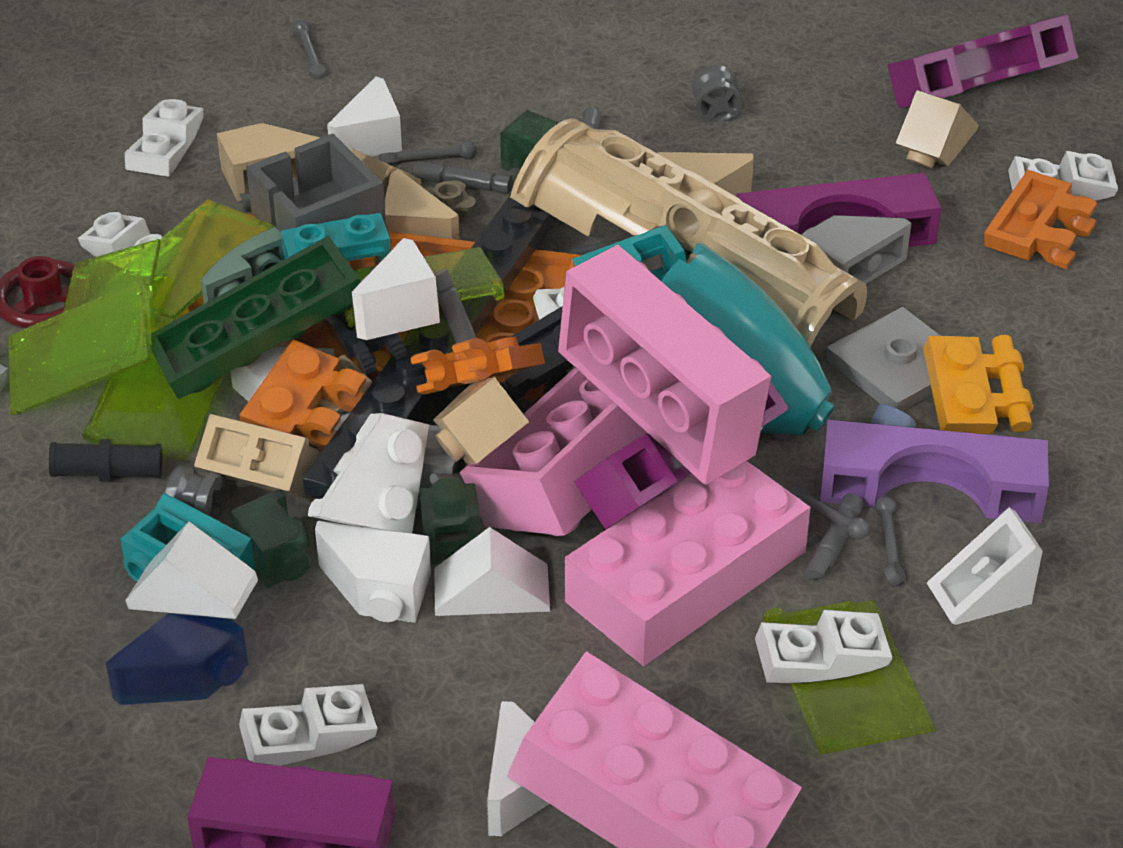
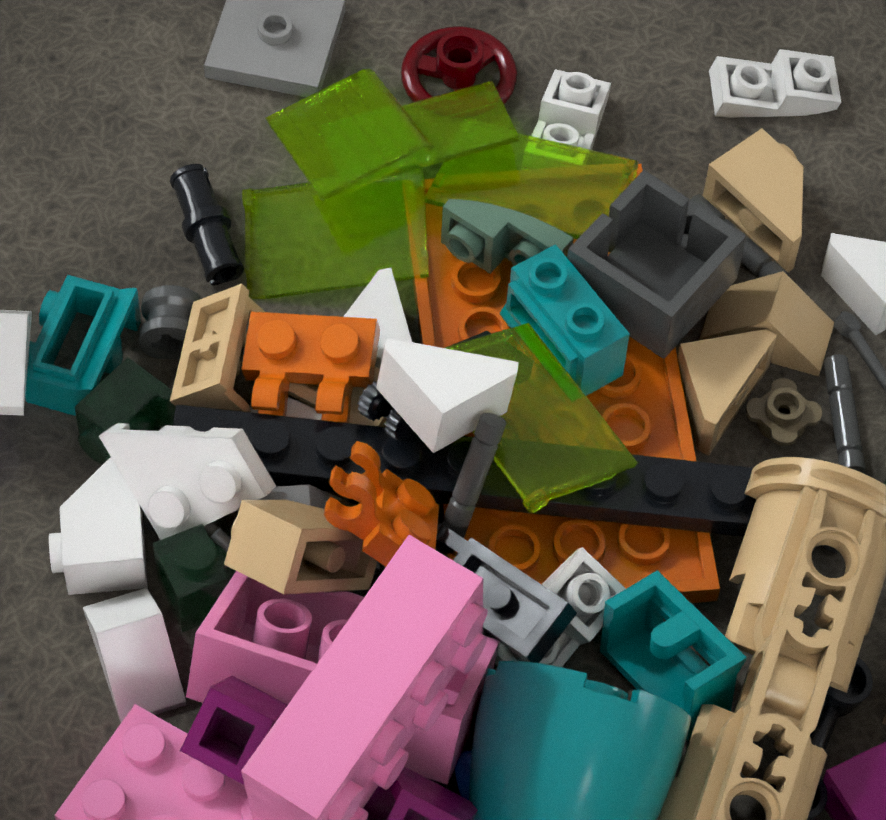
camera: 70 degrees right, 15 degrees up
(254, 317) = (406, 271): dark green plate -> none

